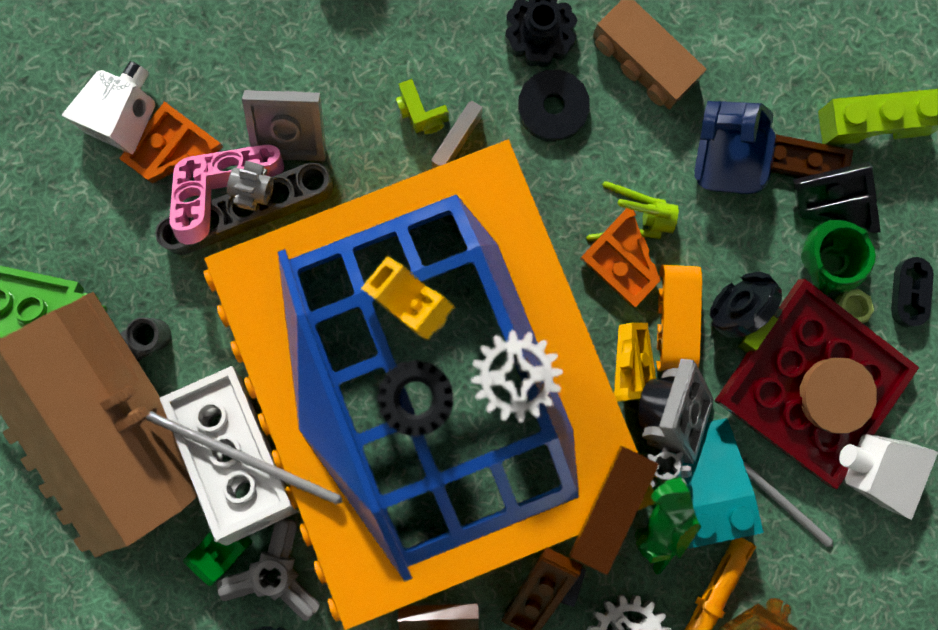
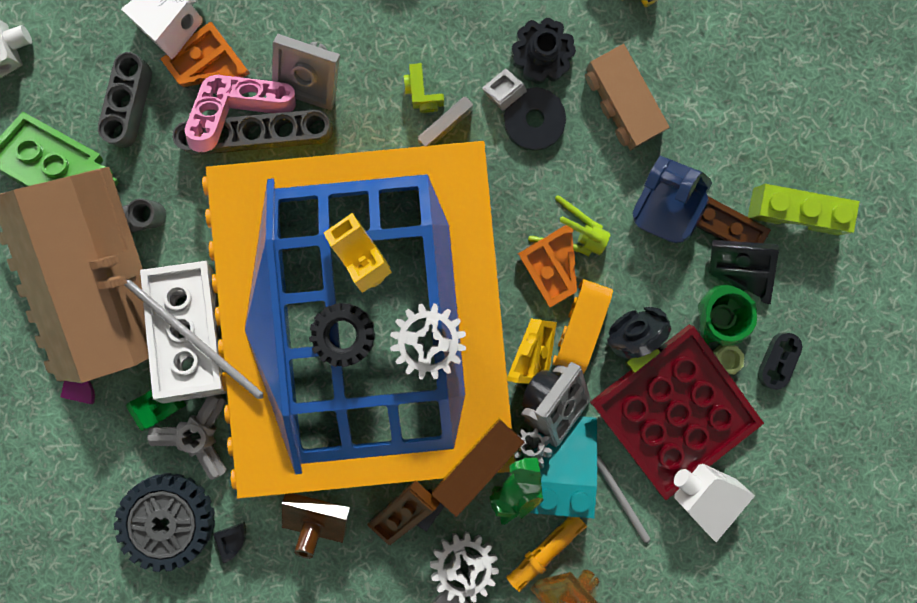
camera: 20 degrees right, 5 degrees up
(80, 202) = (118, 87): none -> dark grey beam
(122, 562) = (78, 392): none -> magenta tile
(250, 186) = (260, 116): light grey gear -> none
(510, 82) = (504, 89): none -> light grey tile
(838, 395) = (690, 427): medium nougat tile -> none

